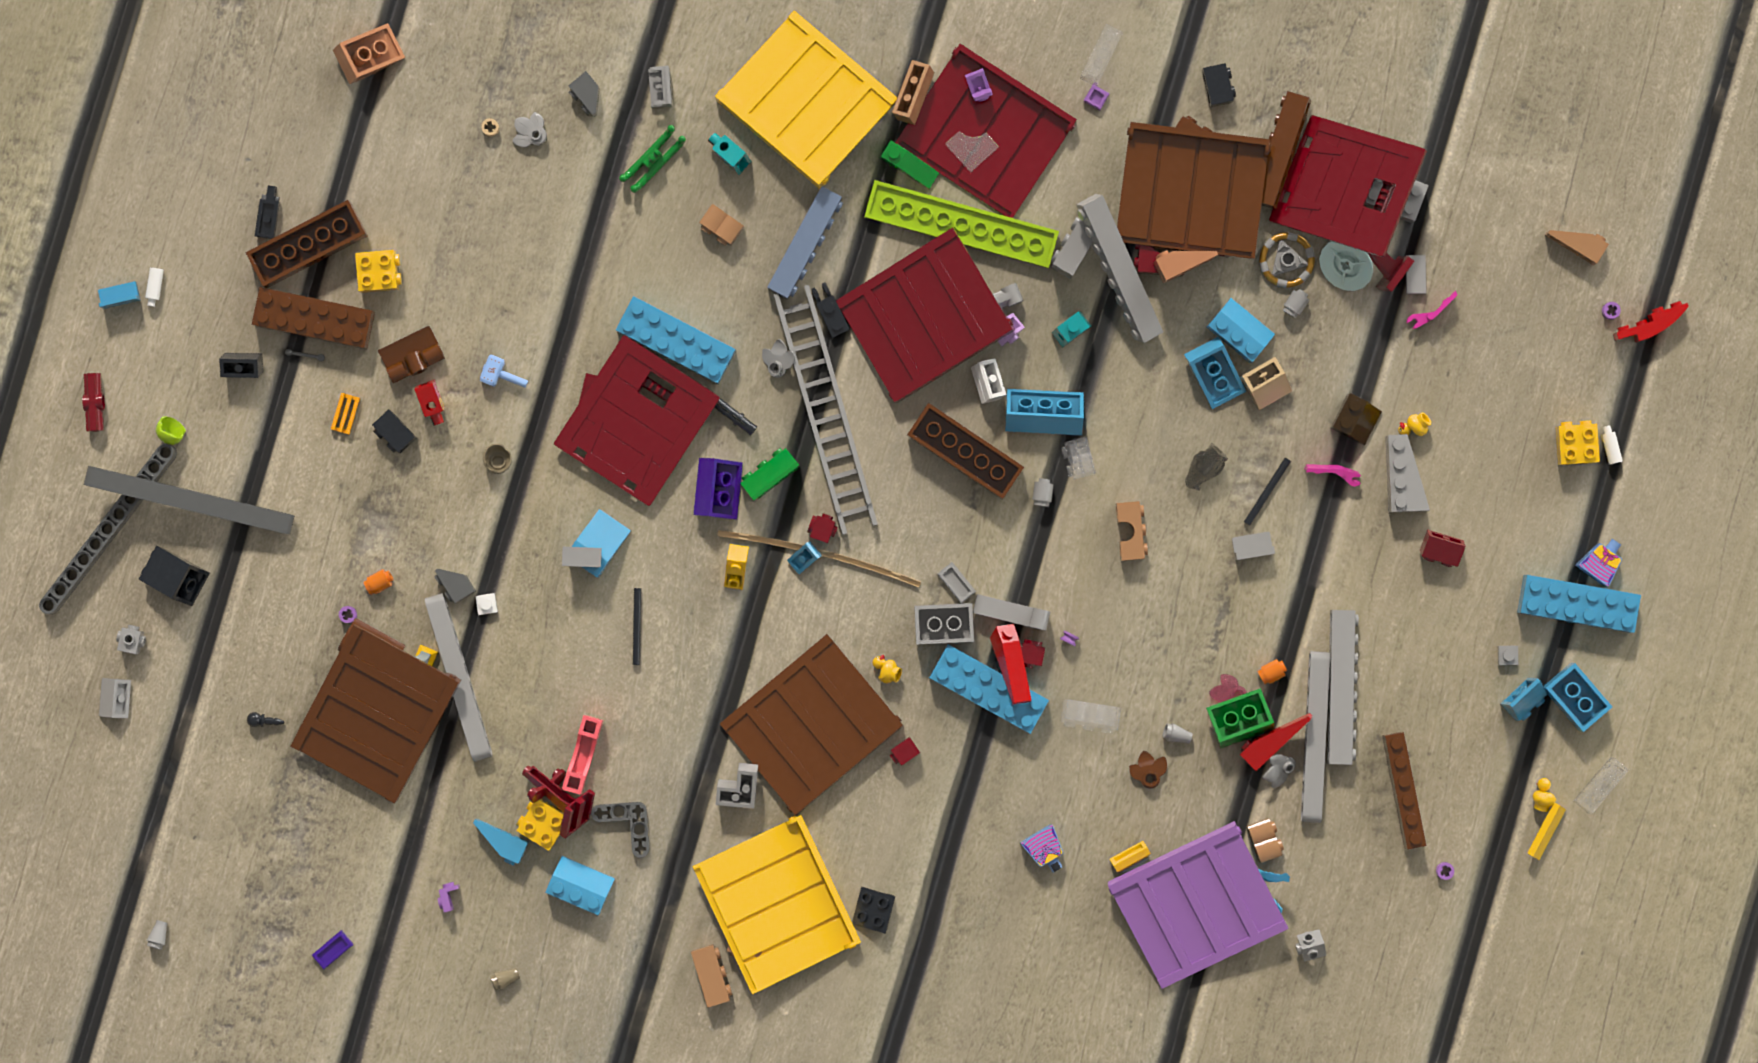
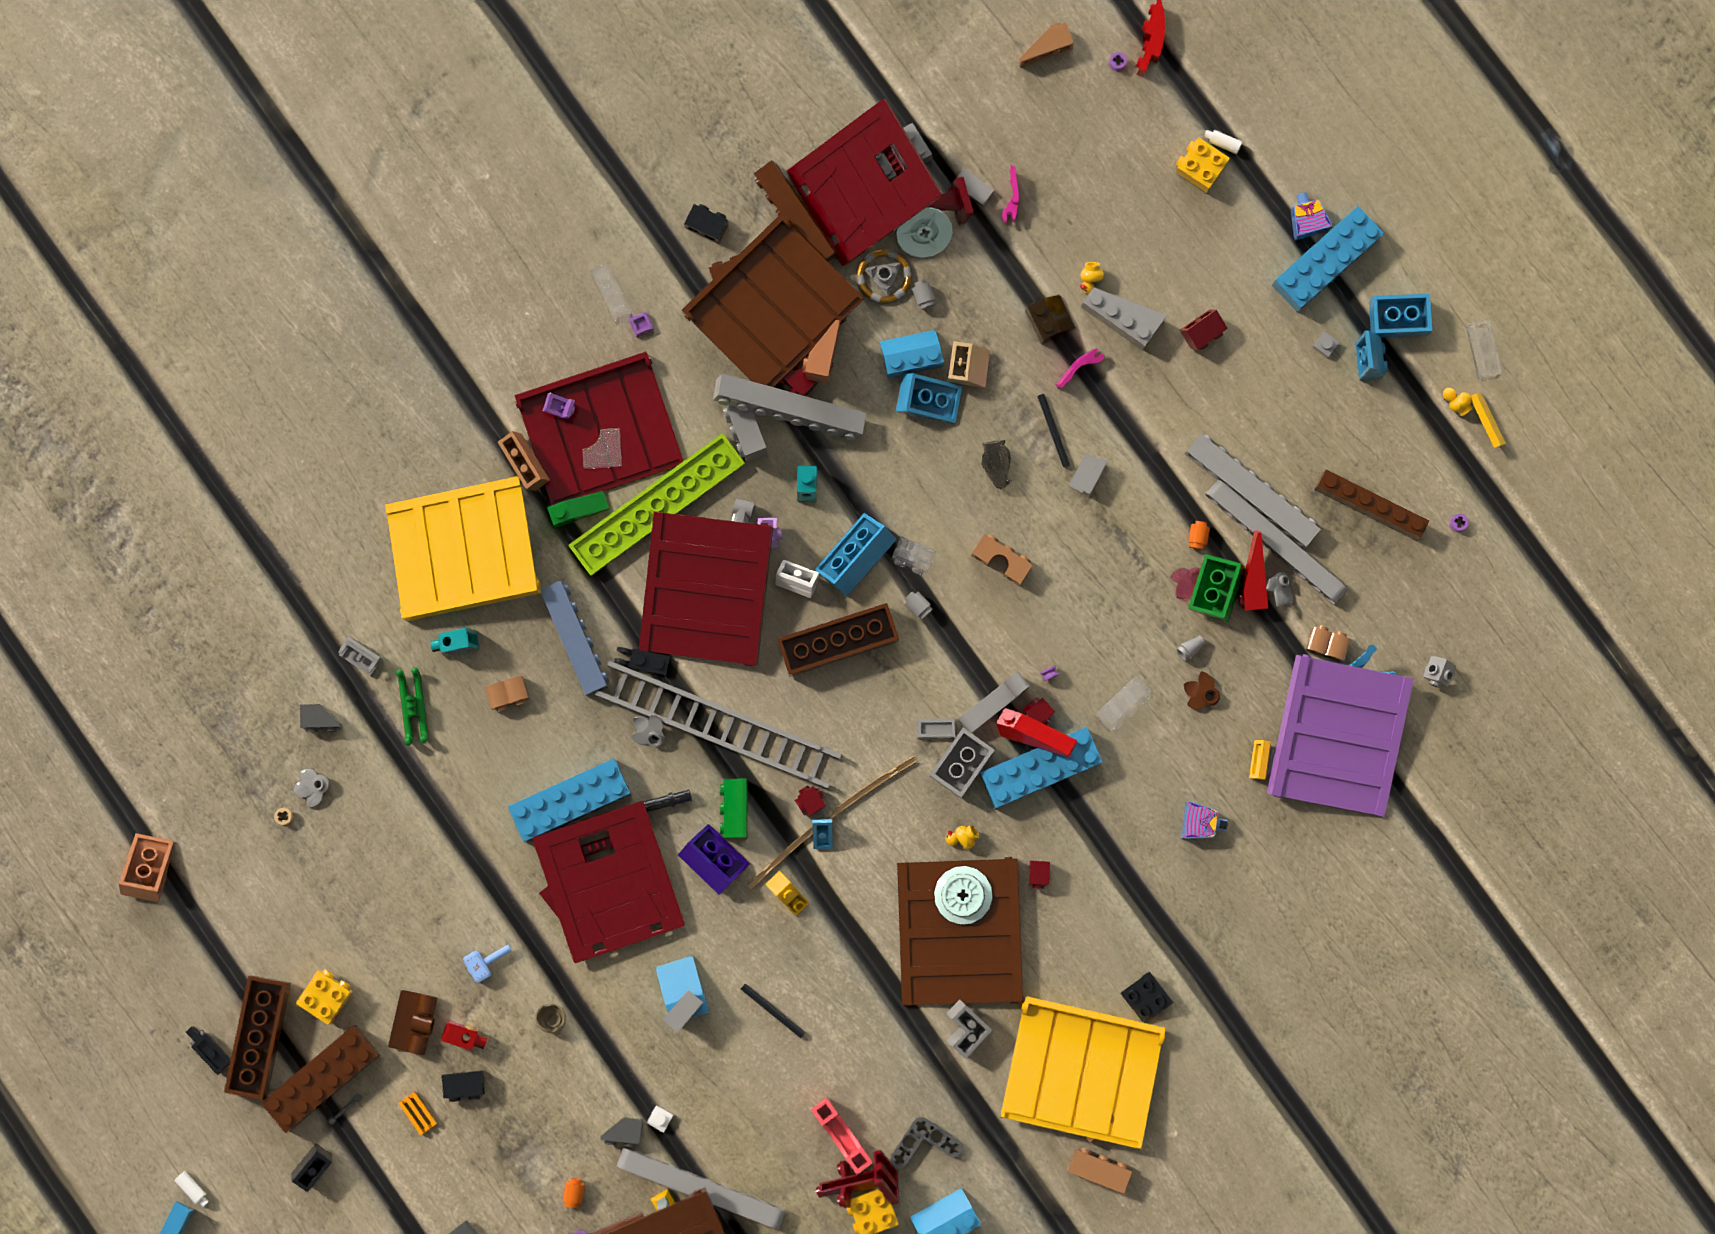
camera: 55 degrees left, 5 degrees down
(856, 706) = (971, 908): none -> light aqua piece

